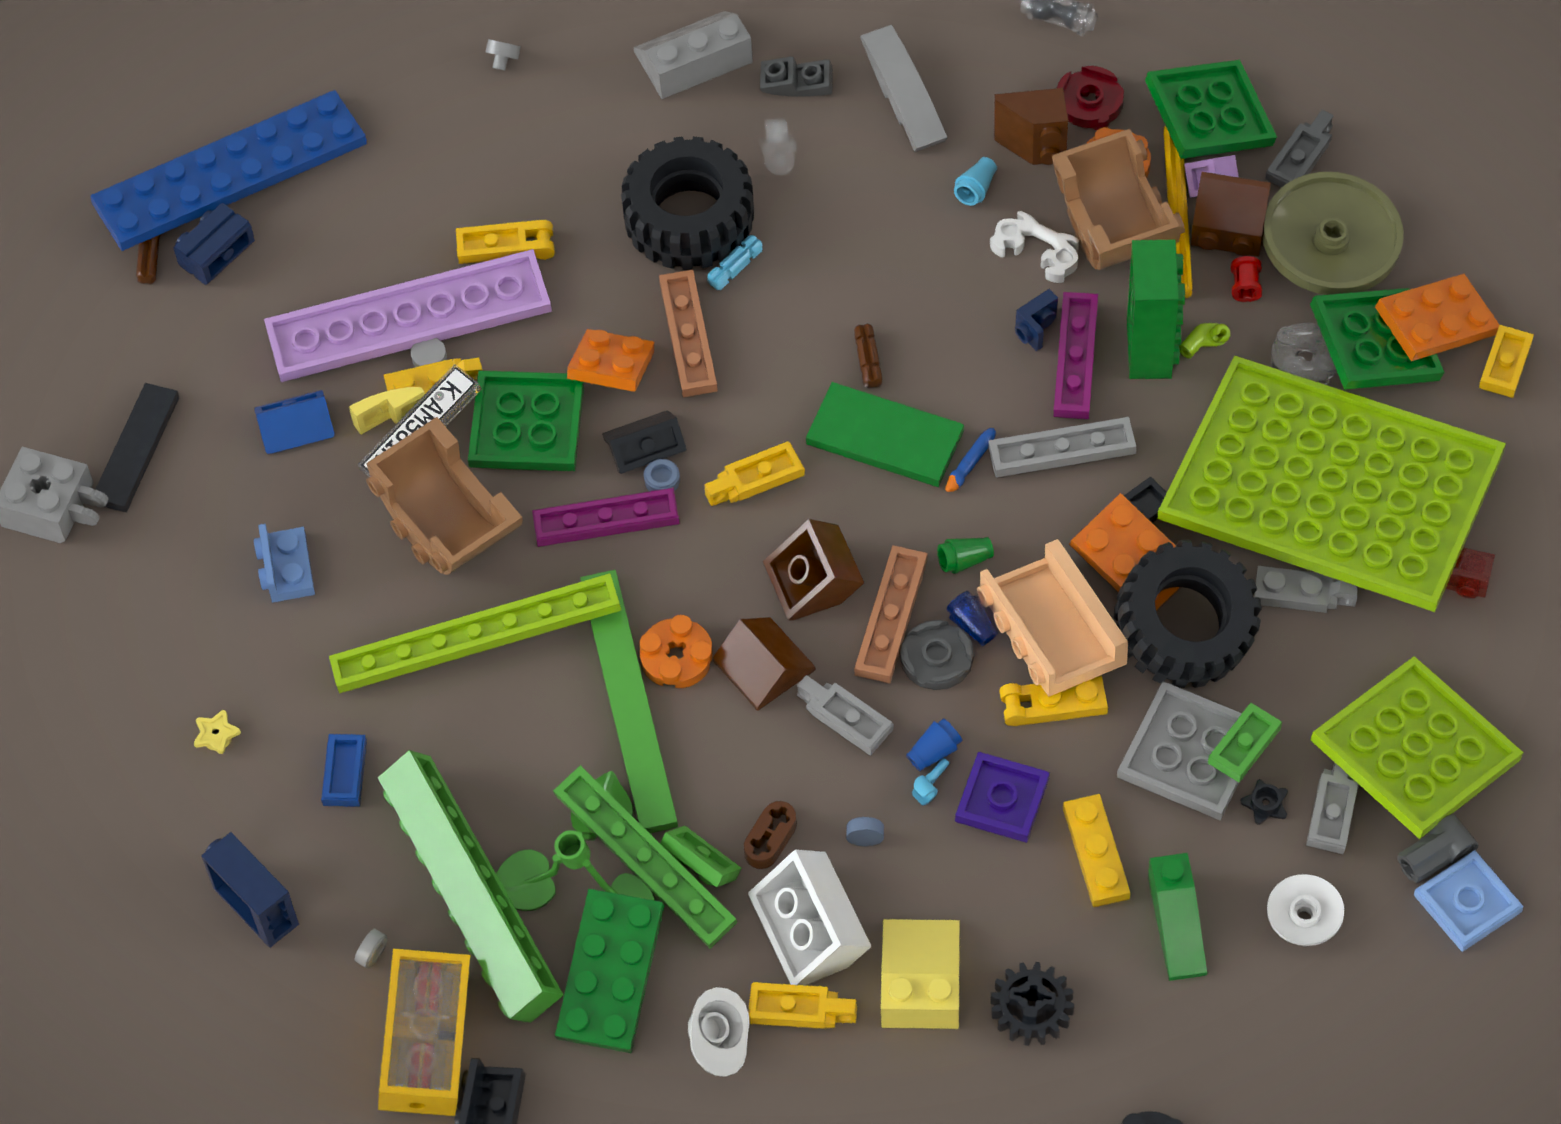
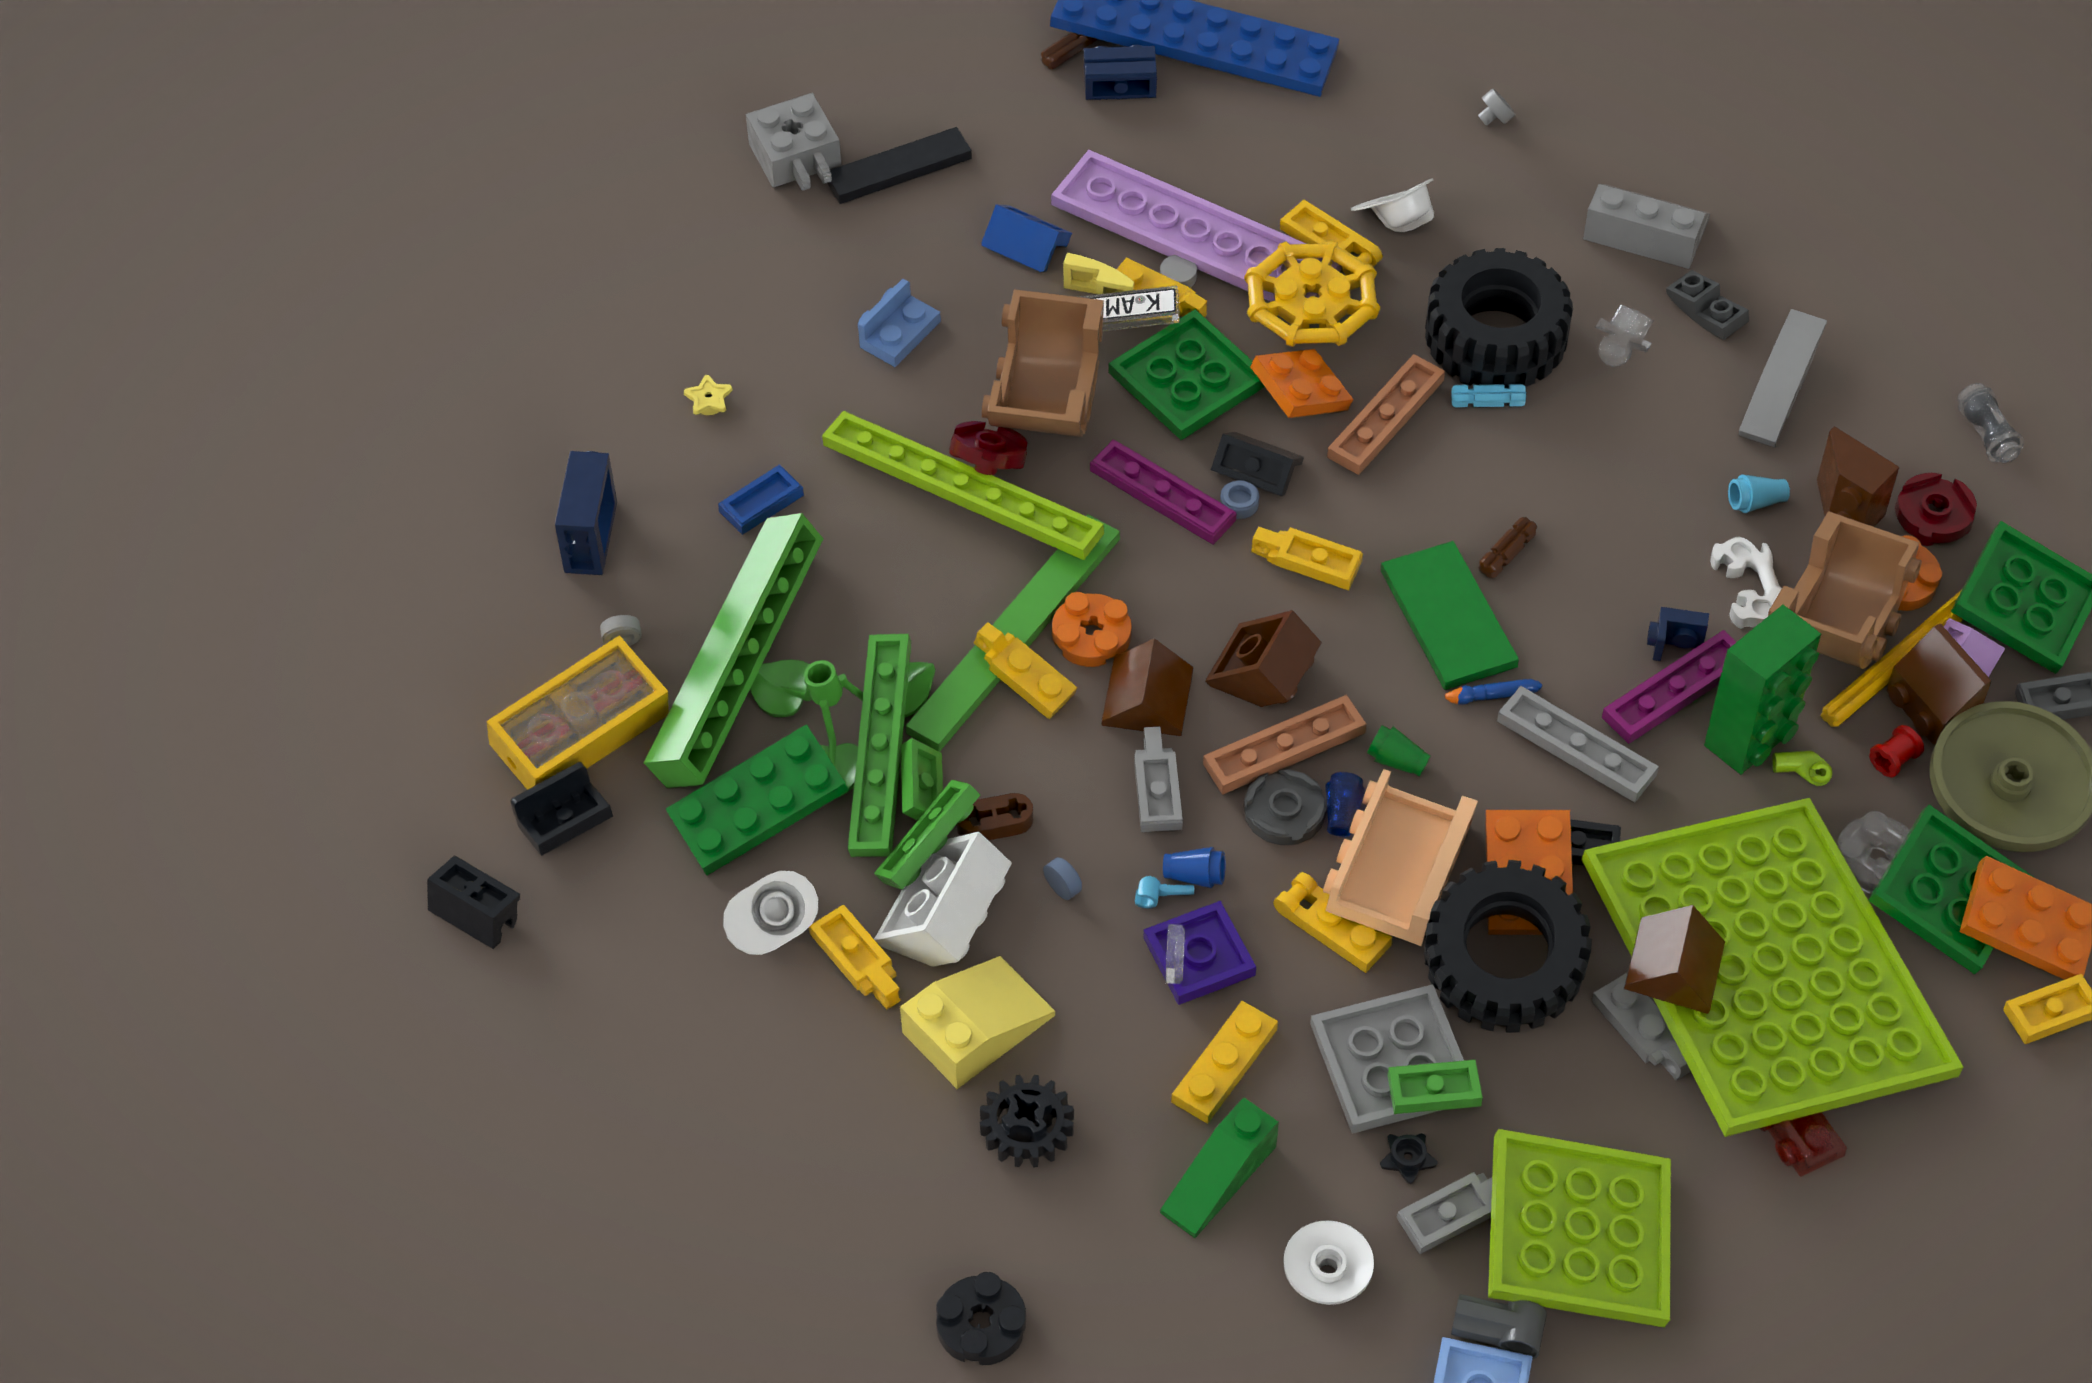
camera: 45 degrees right, 5 degrees down
(464, 591) = (988, 448): none -> dark red plate
(525, 178) = (1404, 209): none -> white piece
(543, 274) = (1314, 277): none -> yellow plate
(673, 720) = (1024, 671): none -> yellow hinge
(751, 885) = (927, 835): none -> bright green plate
(1001, 810) = (1175, 953): none -> clear tile
(1291, 529) = (1676, 959): none -> reddish brown slope

